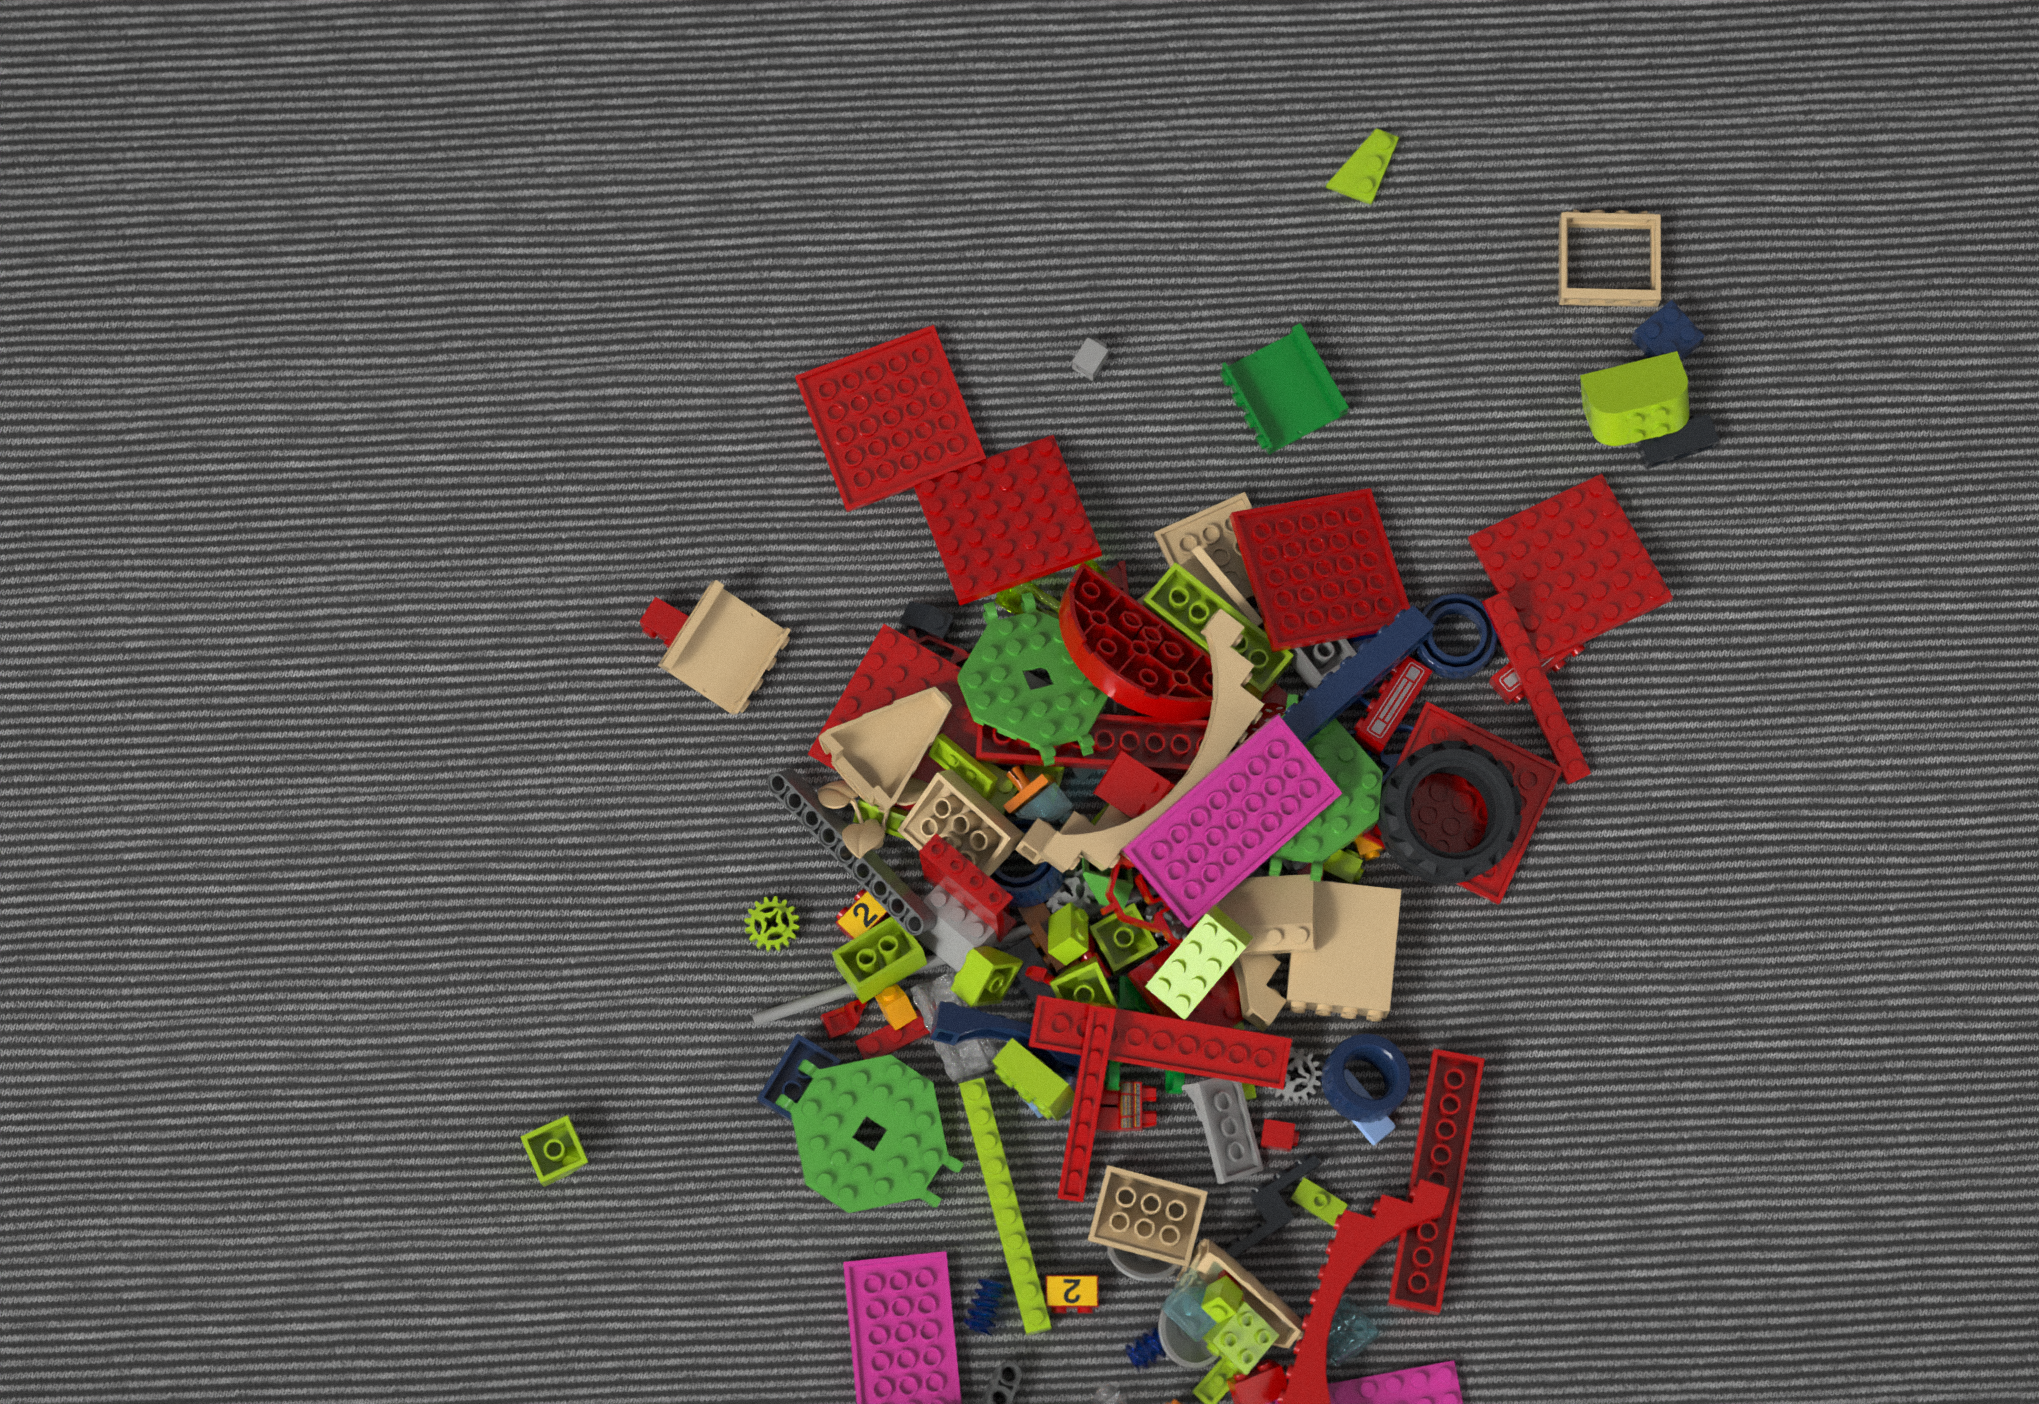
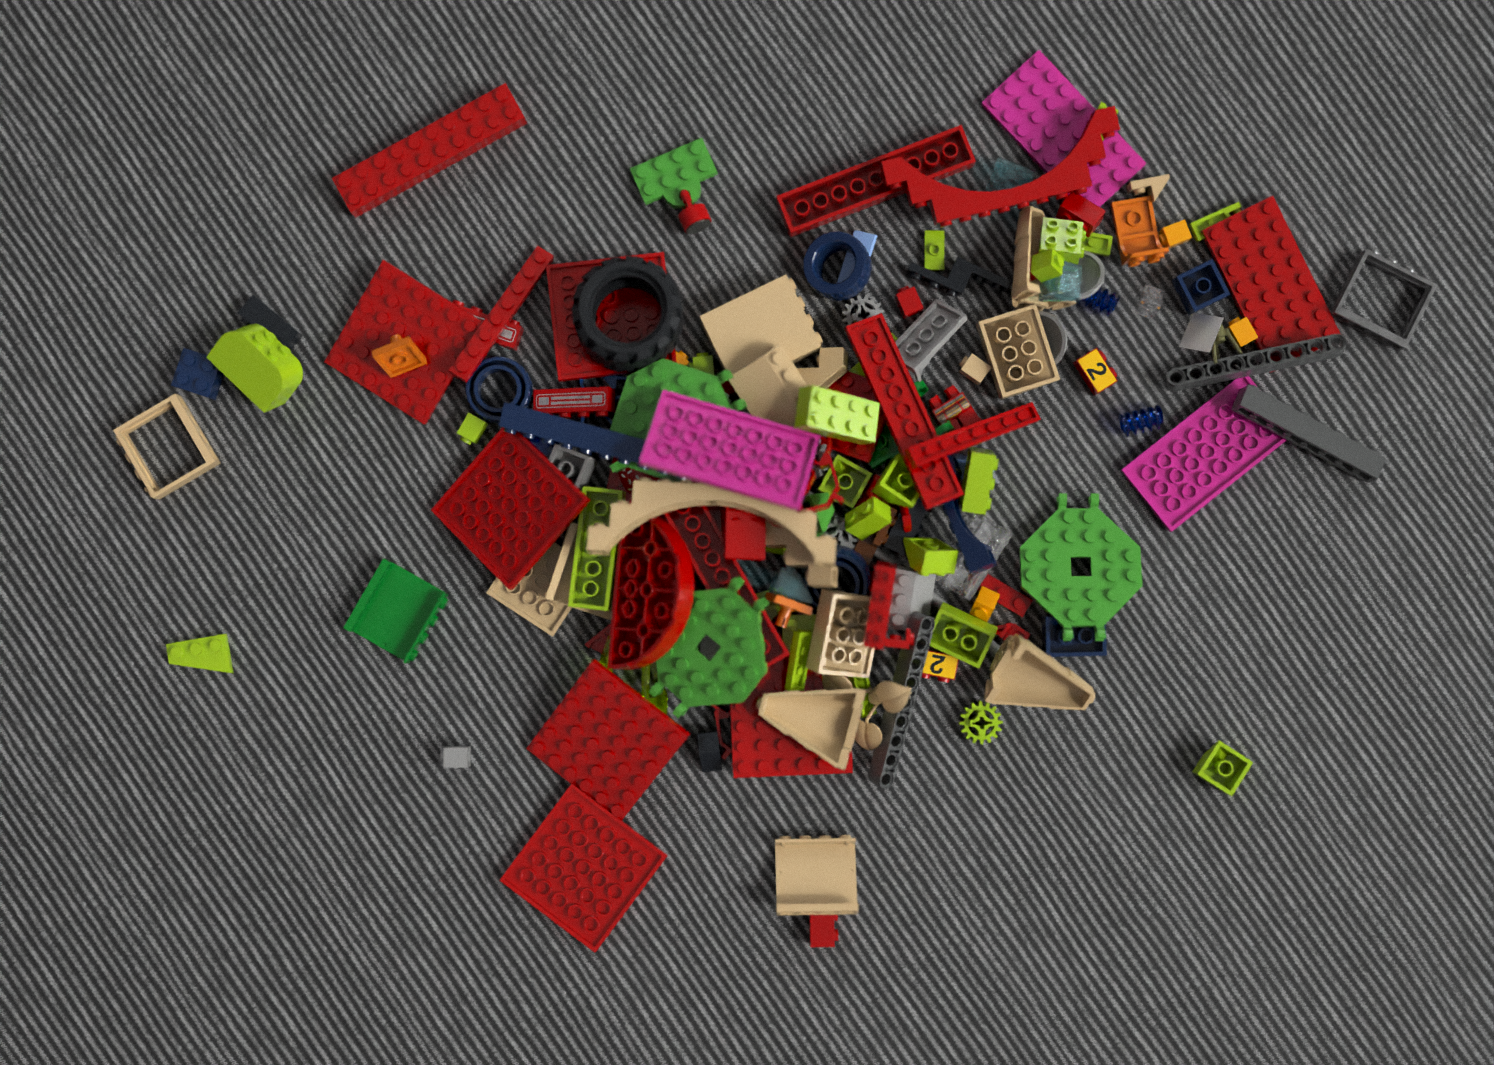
camera: 125 degrees left, 10 degrees up
(779, 1006) = (1033, 679): none -> tan cone
(916, 878) = (896, 640): none -> red bracket
(1005, 1206) = (1068, 449): lime brick -> none
(1159, 1160) = (974, 368): none -> tan brick
(1430, 582) = (472, 429): none -> lime brick
(1554, 549) = (399, 356): none -> orange tile
(1571, 968) = (677, 180): none -> bright green plate
(1767, 722) = (429, 150): none -> red brick

